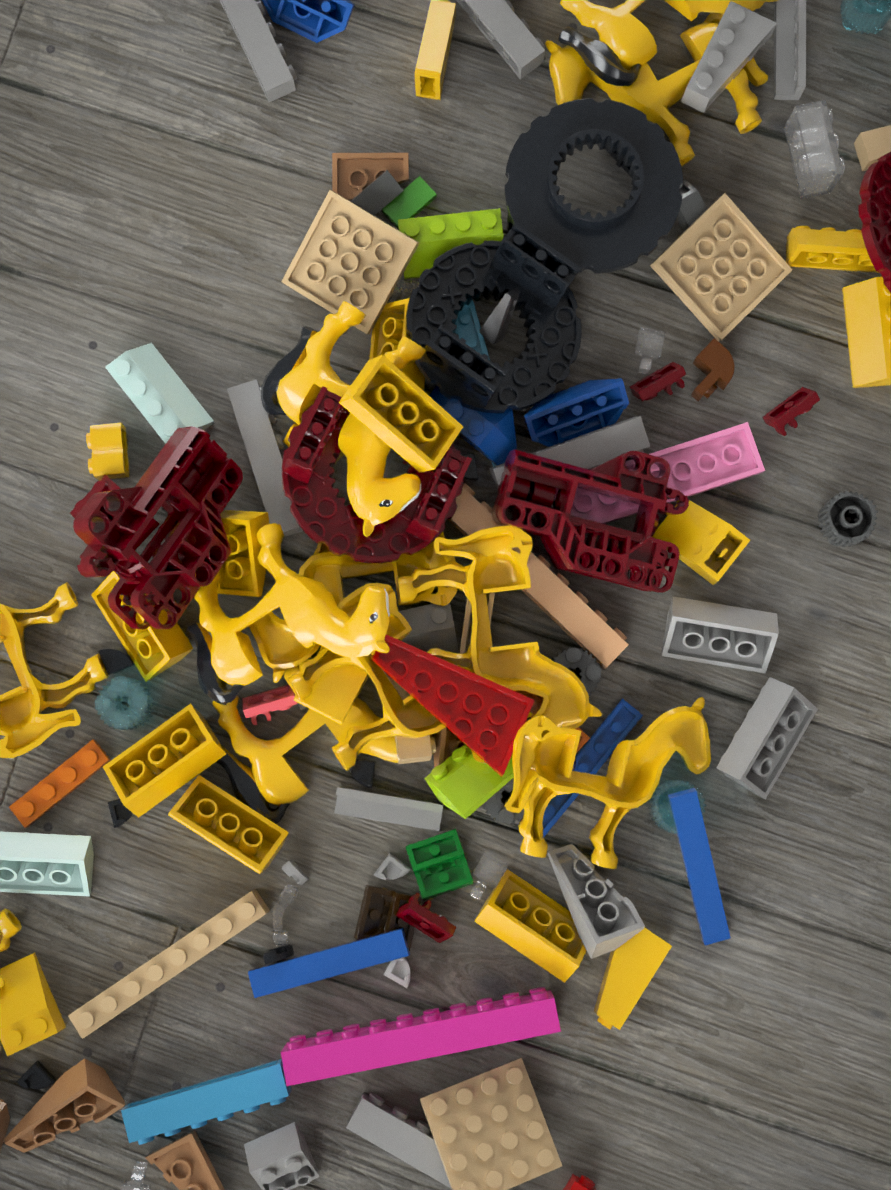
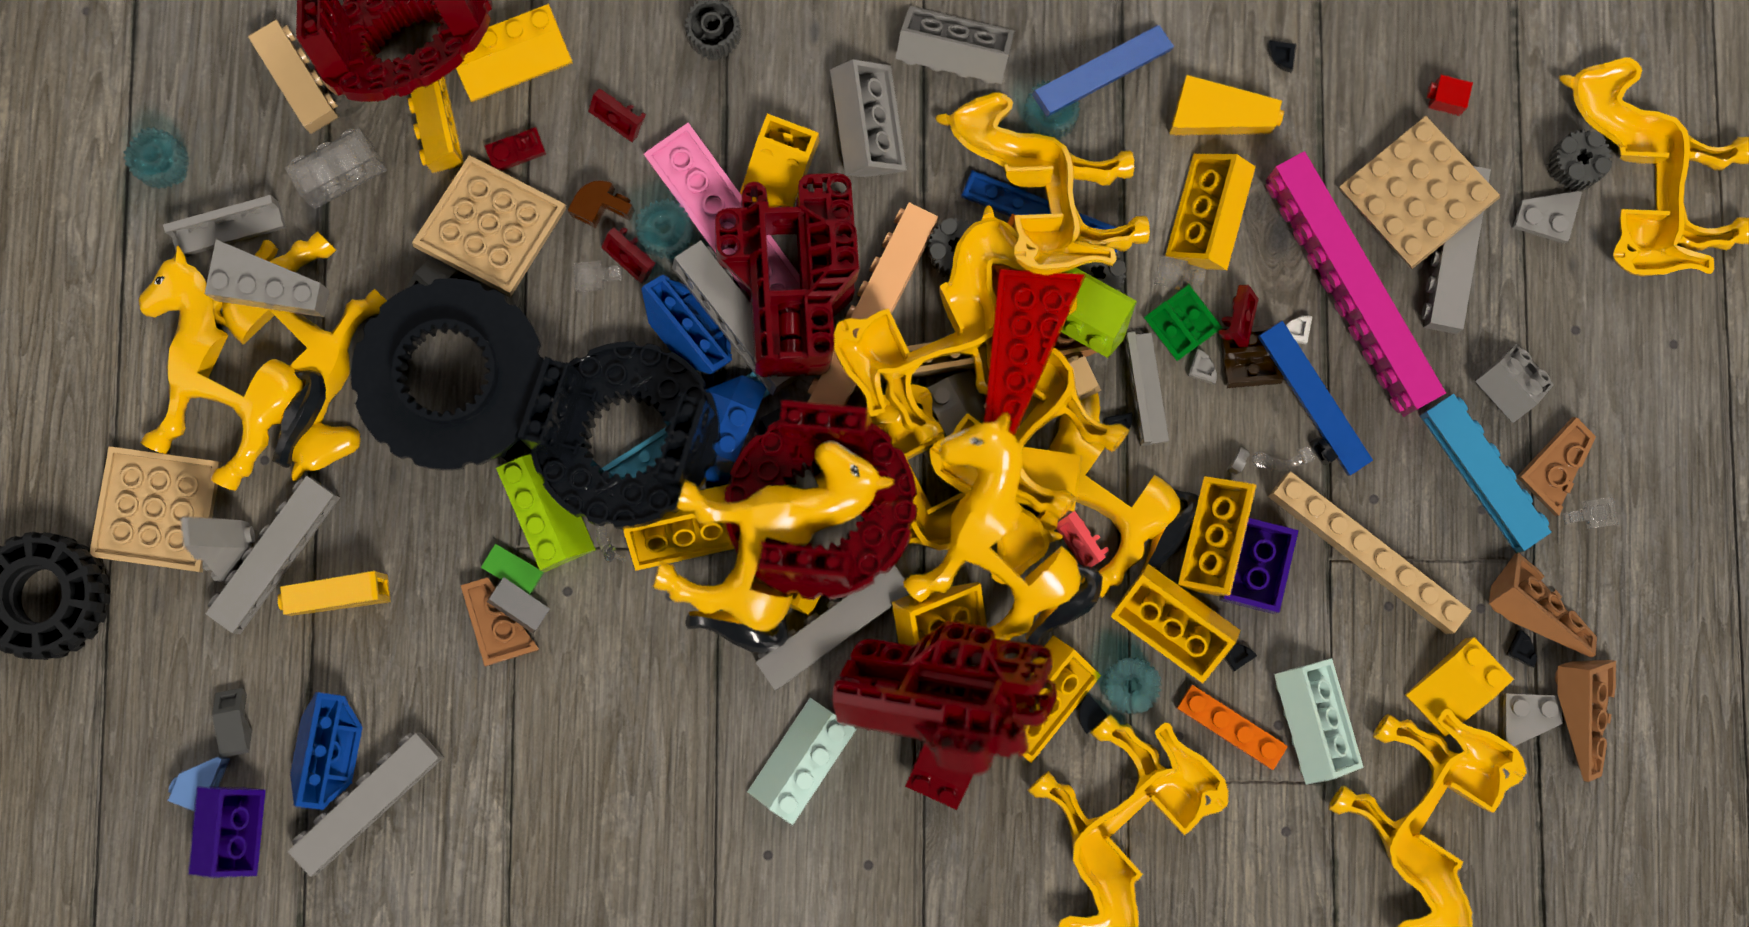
camera: 110 degrees left, 0 degrees up
(108, 451) = (878, 794): yellow brick -> none
(189, 859) = (1263, 567): none -> dark purple brick
(350, 260) = (598, 607): tan plate -> none
(401, 414) = (761, 481): yellow brick -> none
(497, 323) = (619, 435): flat silver slope -> none
(597, 909) = (1175, 156): light grey wedge -> none
(664, 406) = (658, 216): none -> clear light blue brick
(666, 1048) = (1282, 54): none -> black tile
(786, 313) = (515, 149): none -> dark red plate

